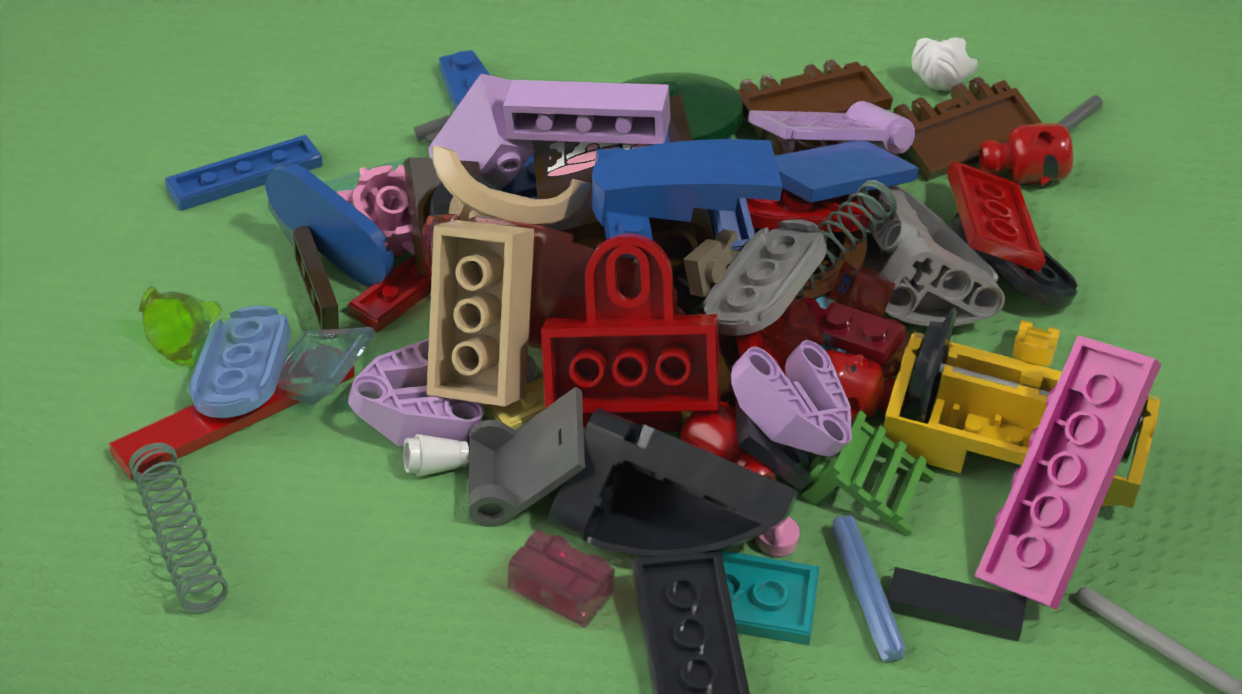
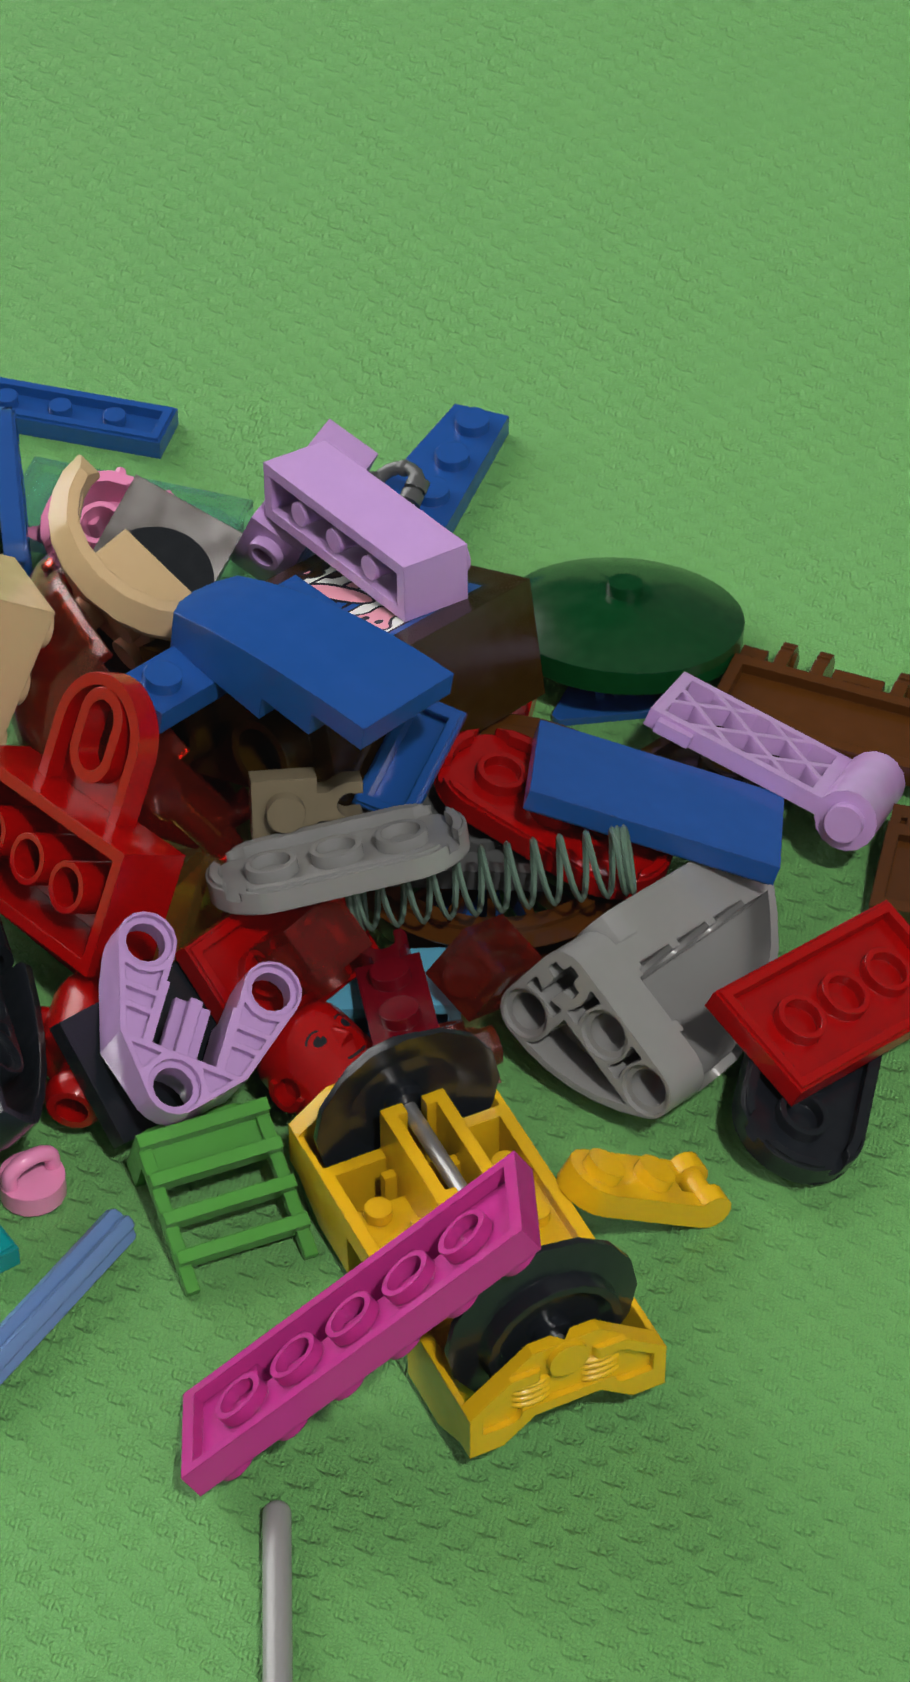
camera: 50 degrees right, 0 degrees up
(957, 603) = (112, 1405): black tile -> none

